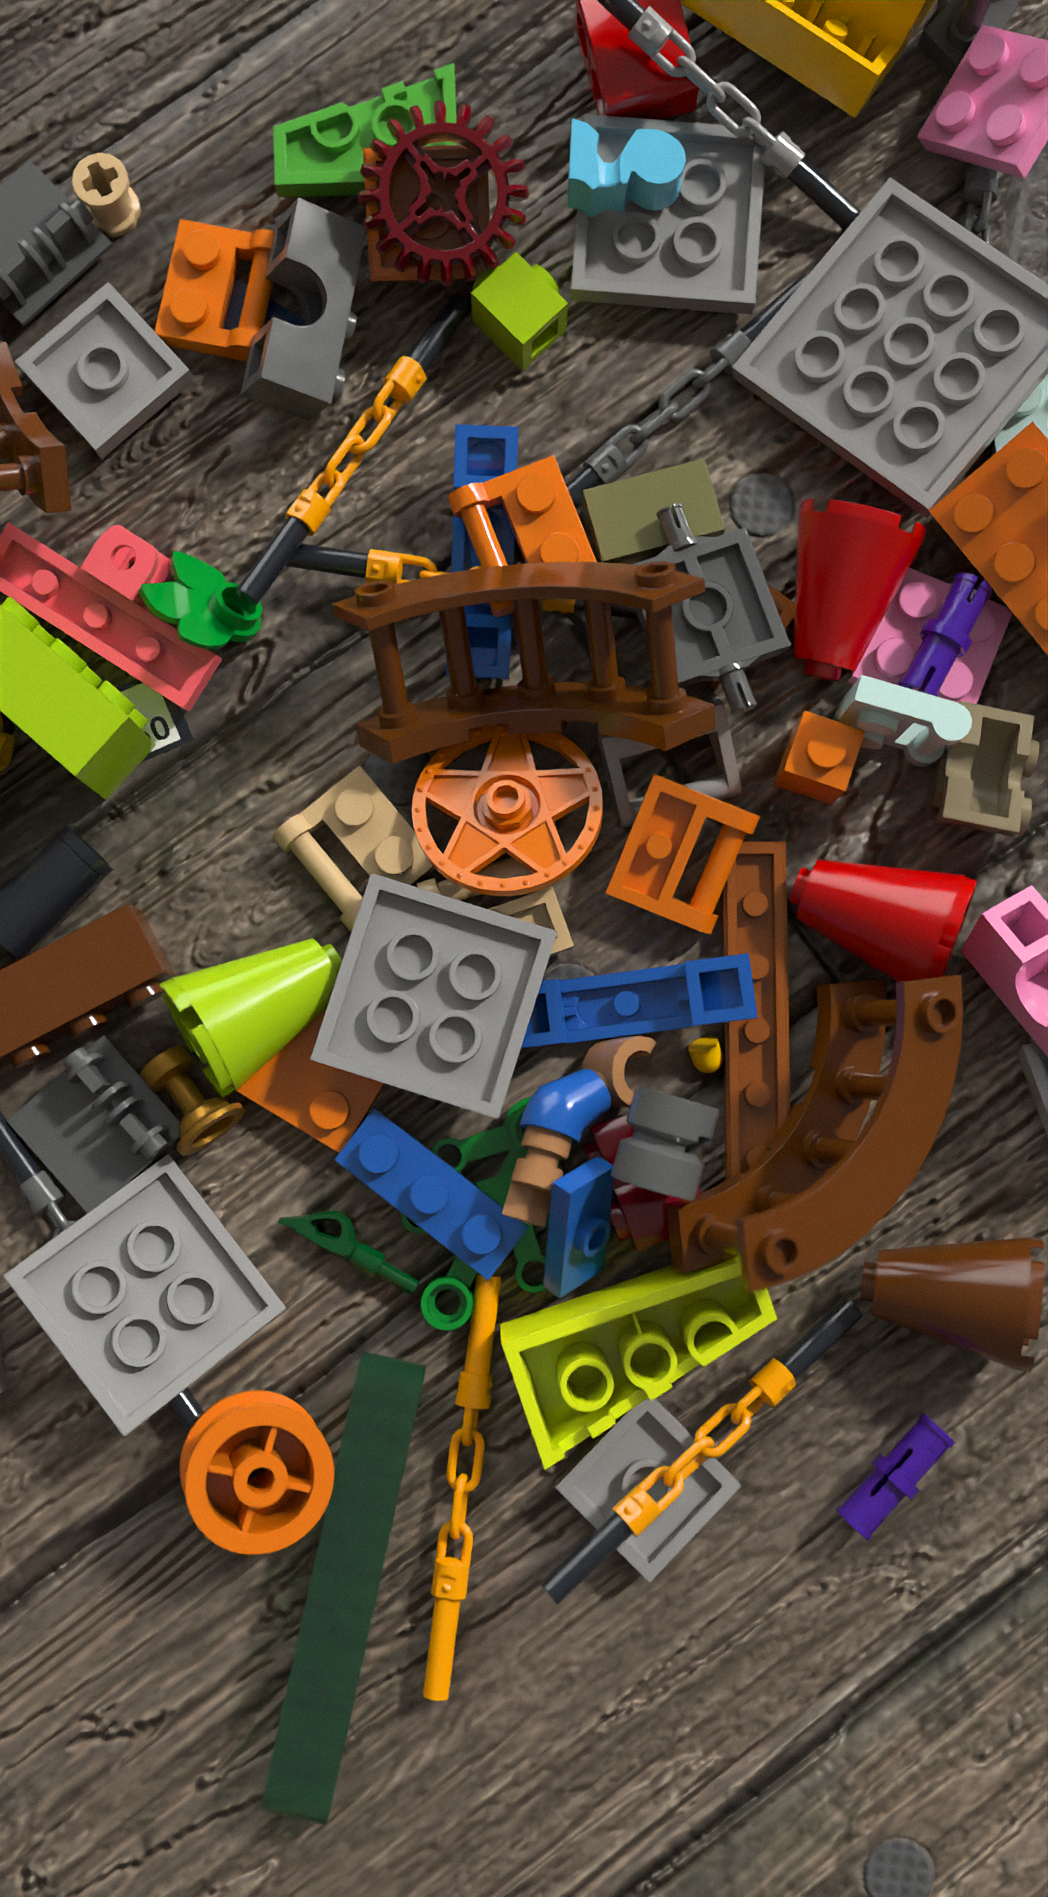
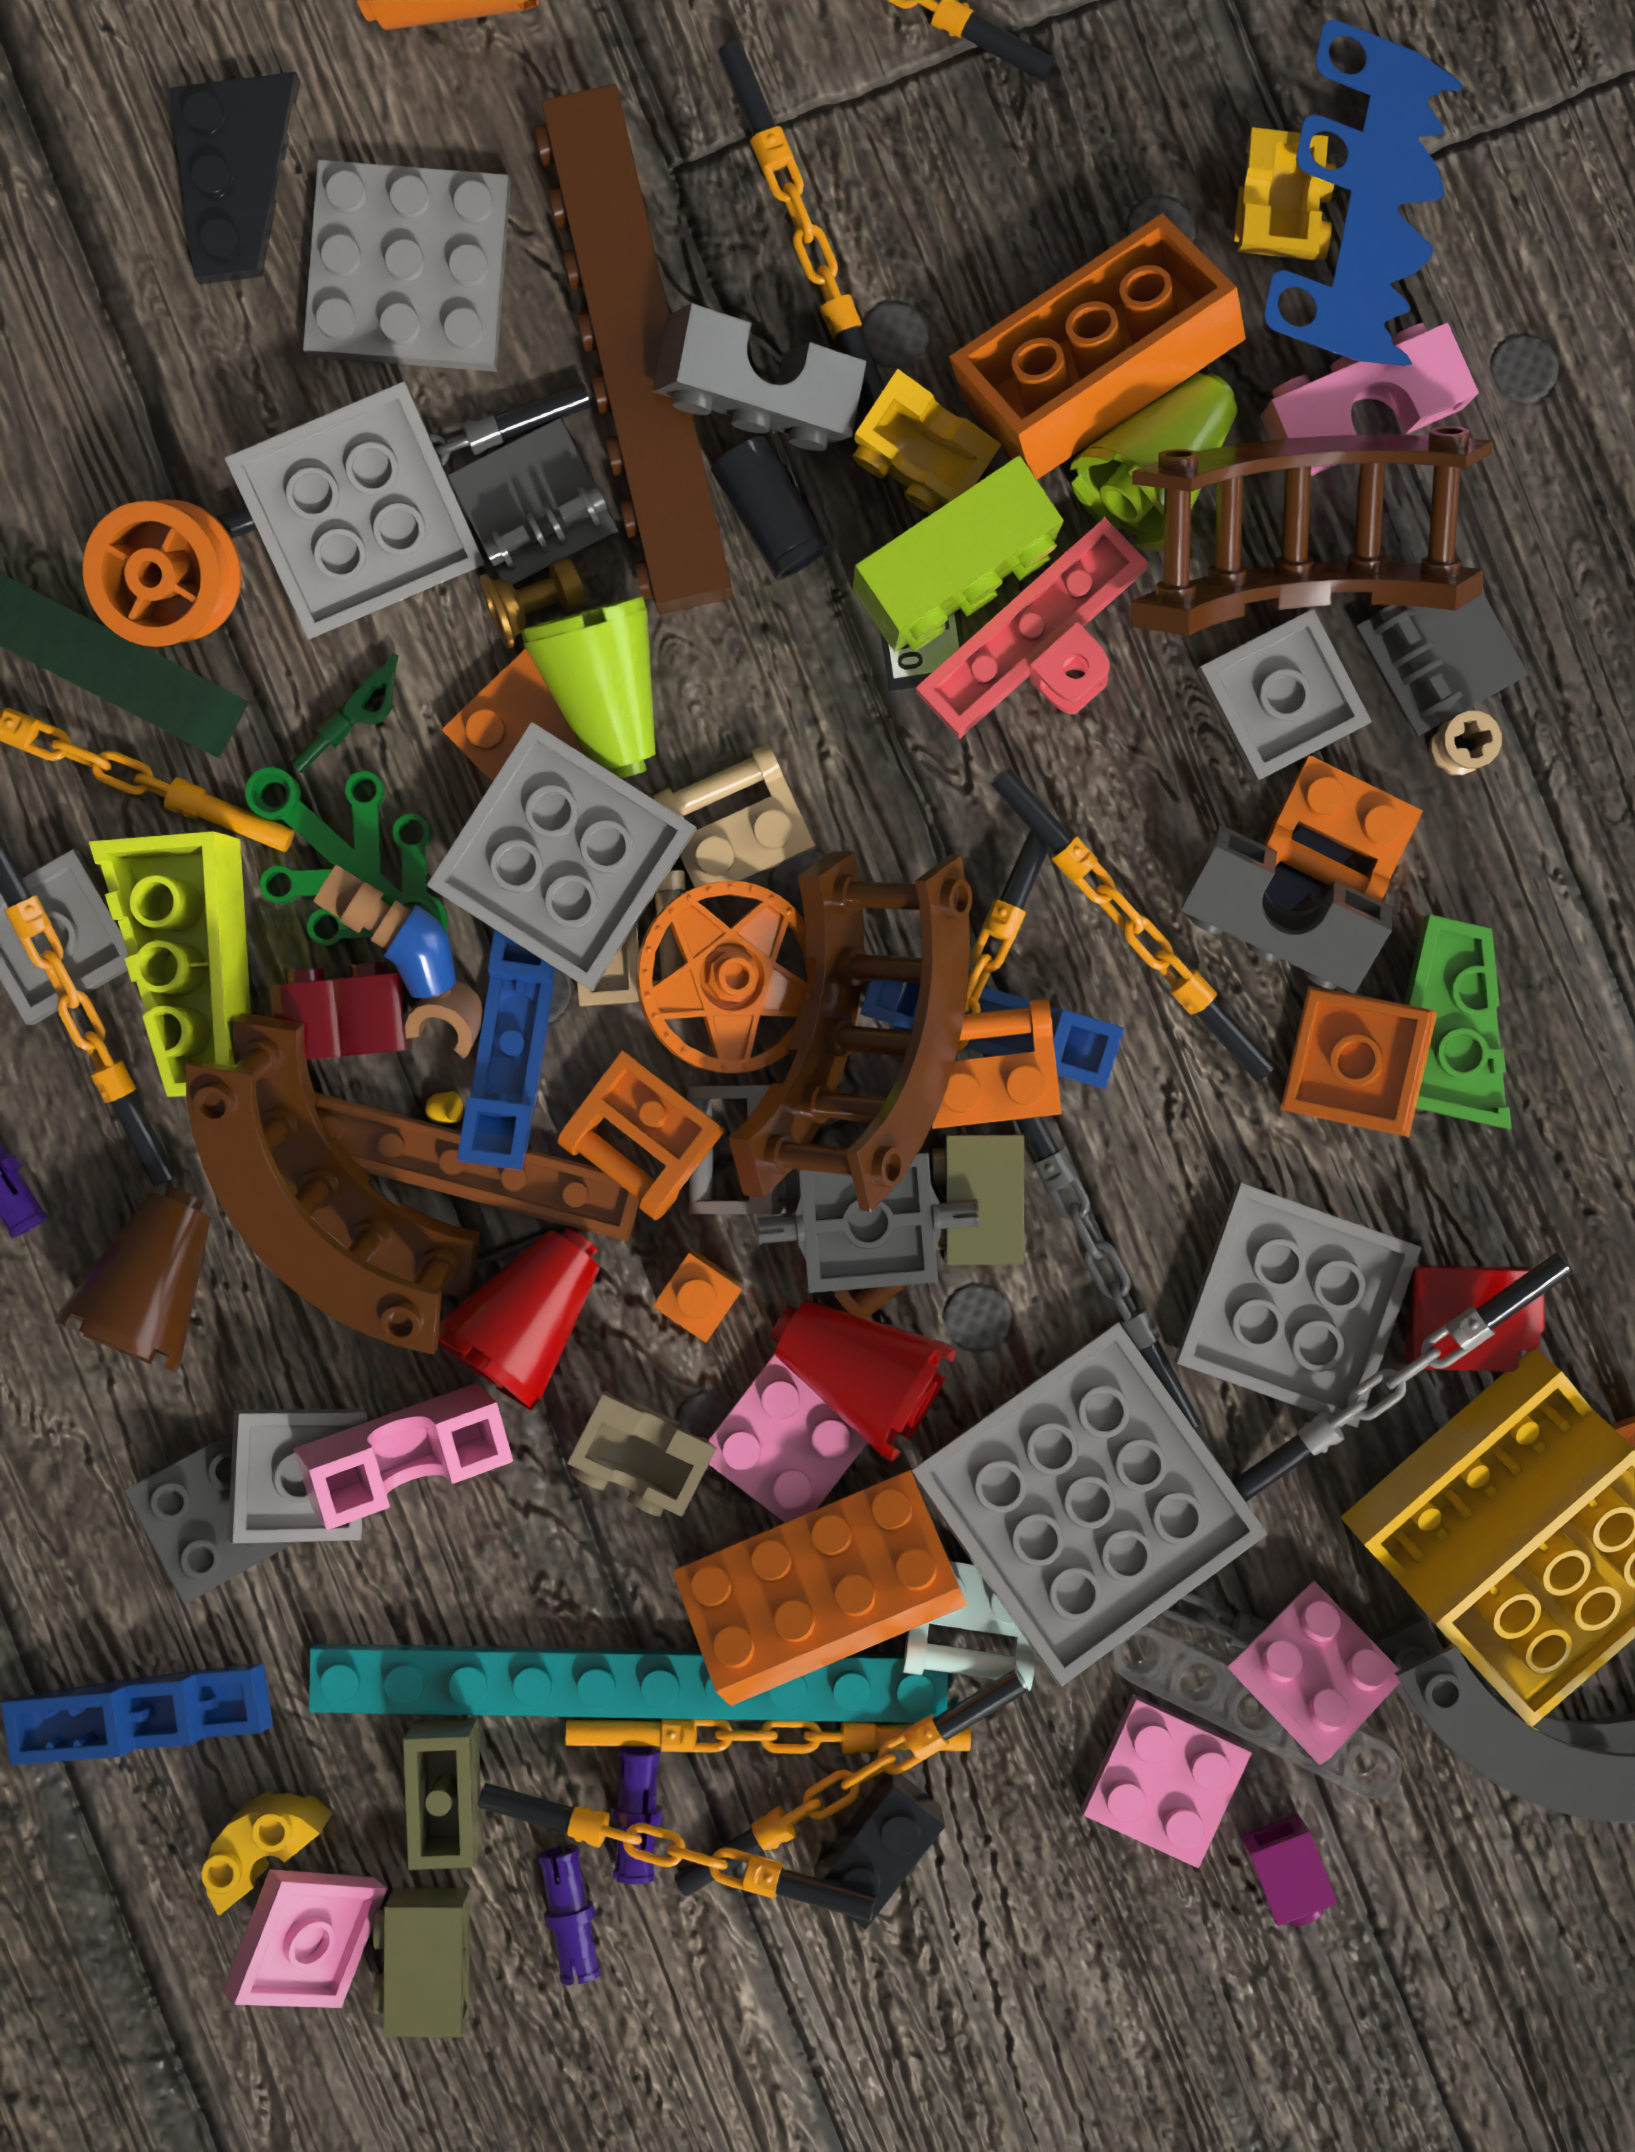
camera: 110 degrees right, 5 degrees up
(202, 605) = (1014, 730): green plate -> none
(419, 216) = (1384, 1067): dark red gear -> none
(431, 1193) = (379, 804): blue plate -> none
(519, 309) = (1237, 1126): lime brick -> none
(578, 1226) = (306, 935): blue plate -> none
(645, 171) = (1337, 1290): medium azure leg -> none
(664, 1143) = (351, 1031): dark grey wheel -> none
(903, 719) = (717, 1364): light aqua plate -> none
(946, 635) = (780, 1451): dark purple pin -> none

